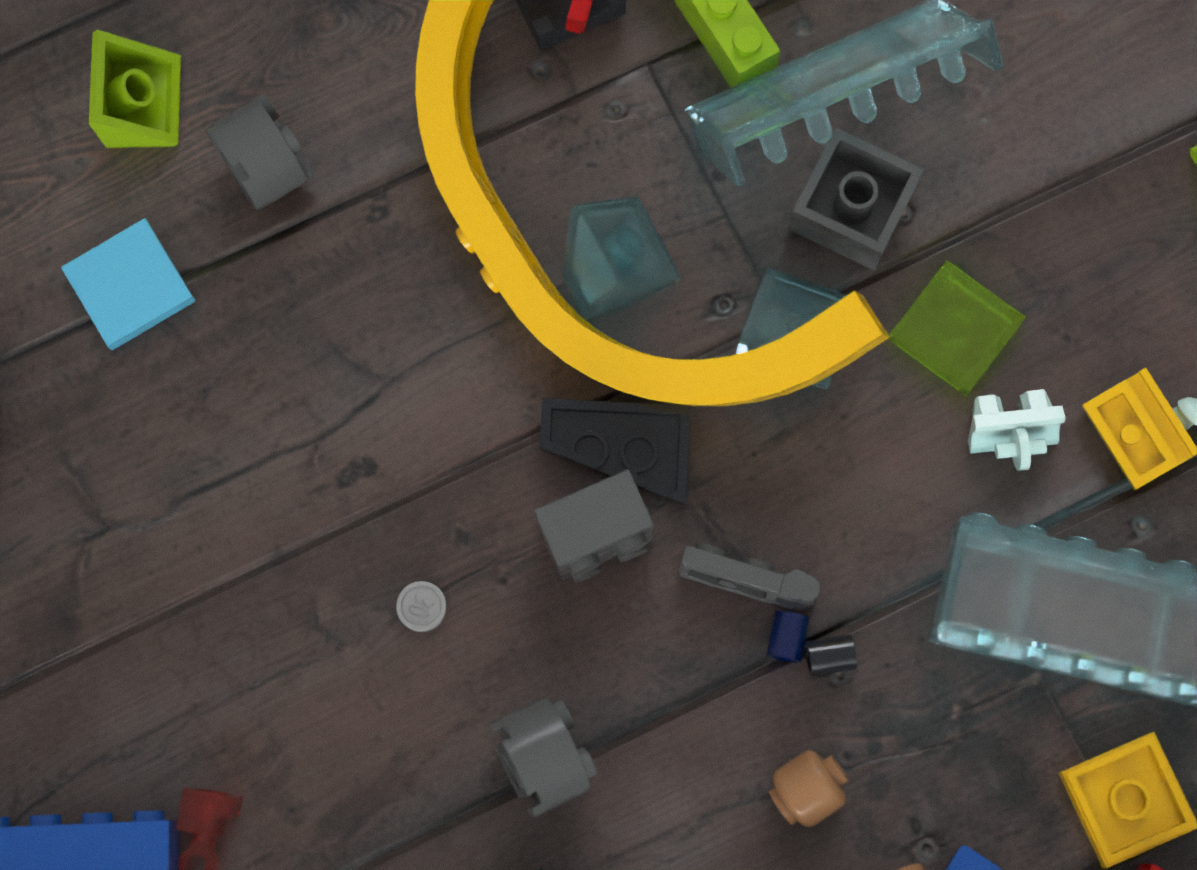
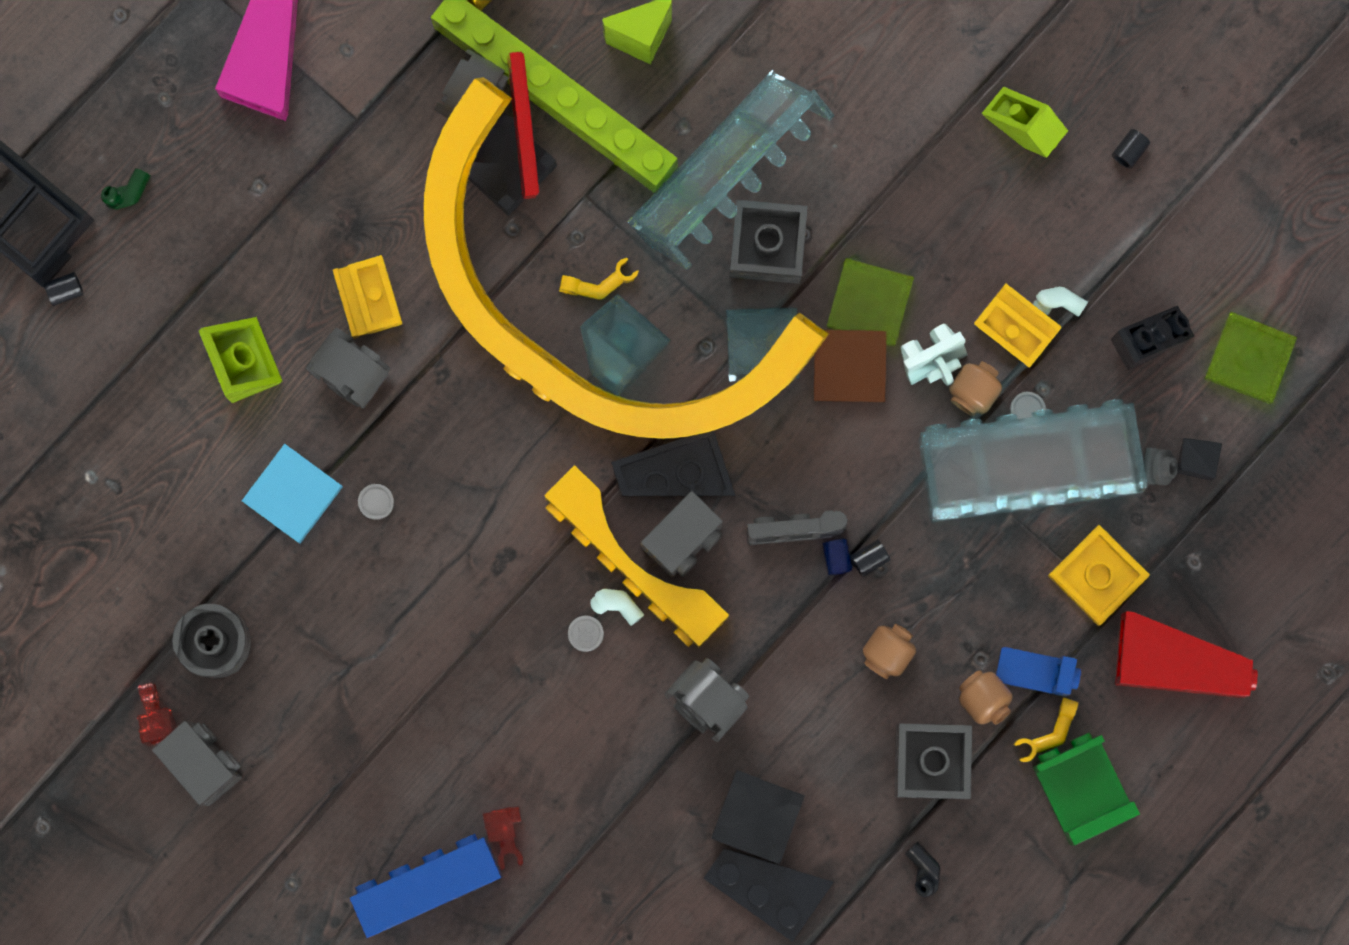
camera: 25 degrees left, 5 degrees up
(228, 335) = (376, 501): none -> light grey piece
(325, 80) = (367, 297): none -> yellow plate
(478, 579) = (616, 601): none -> light aqua arm
(567, 628) = (688, 609): none -> yellow arch
(587, 166) = (575, 286): none -> yellow arm
(901, 397) = (851, 366): none -> reddish brown tile
(1054, 489) = (975, 388): none -> medium nougat head
(1113, 534) = (1025, 404): none -> light grey piece

